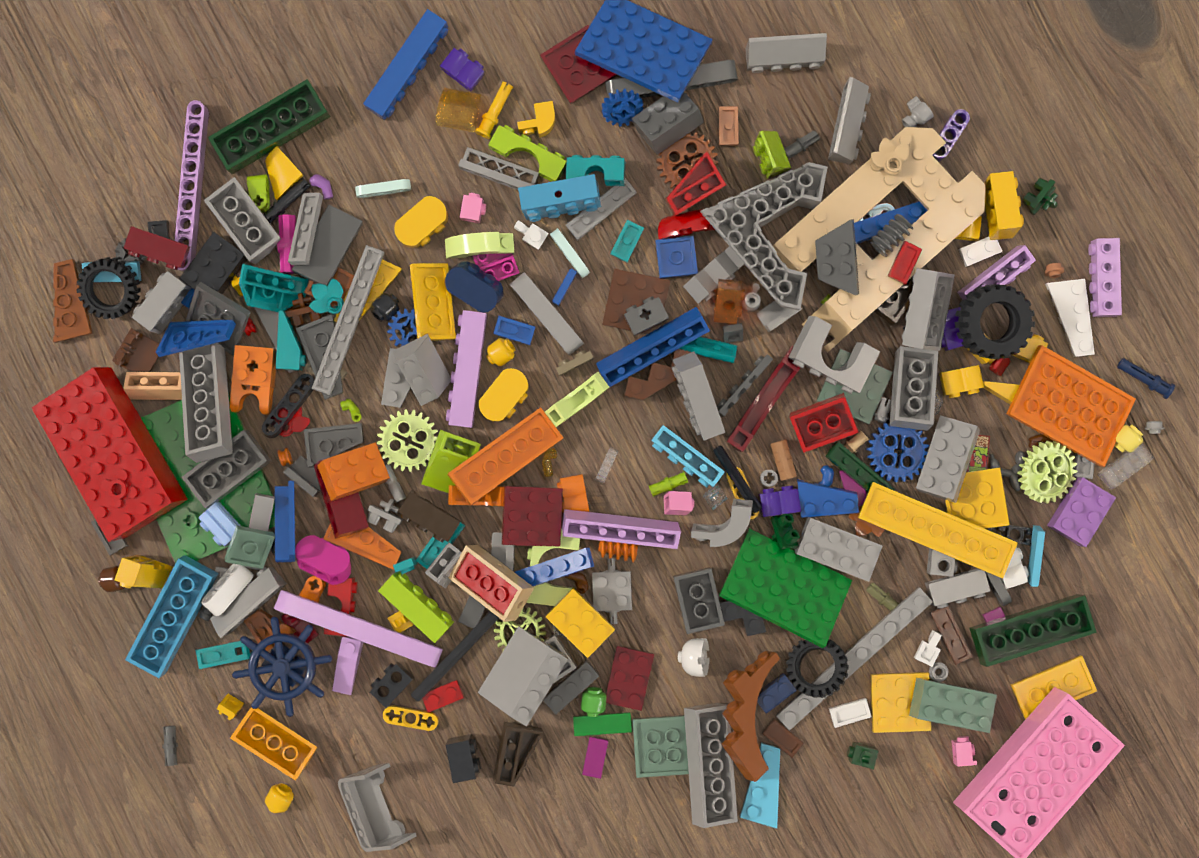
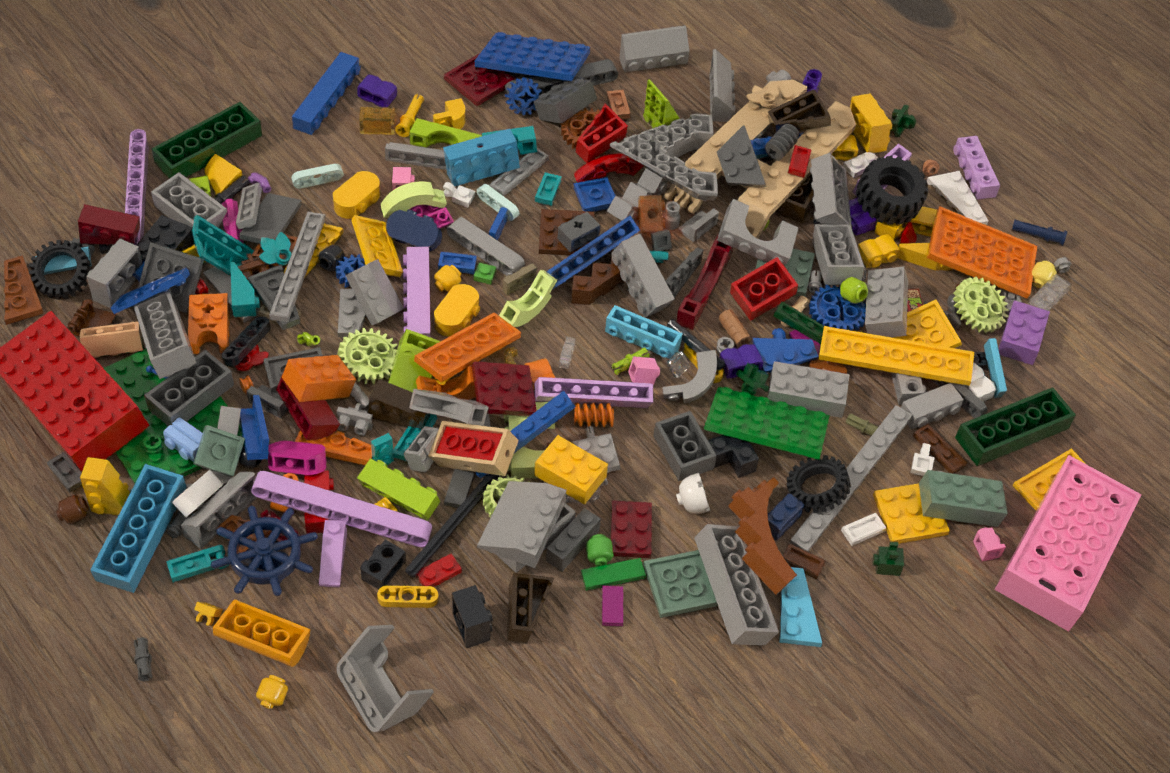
camera: 10 degrees left, 35 degrees down
(467, 536) = (449, 406): none -> light grey arch
(541, 346) = (485, 273): none -> bright green plate
(801, 144) = (684, 110): dark grey axle -> none
(916, 442) = (854, 290): none -> lime head
(922, 199) = (802, 112): none -> dark brown wedge

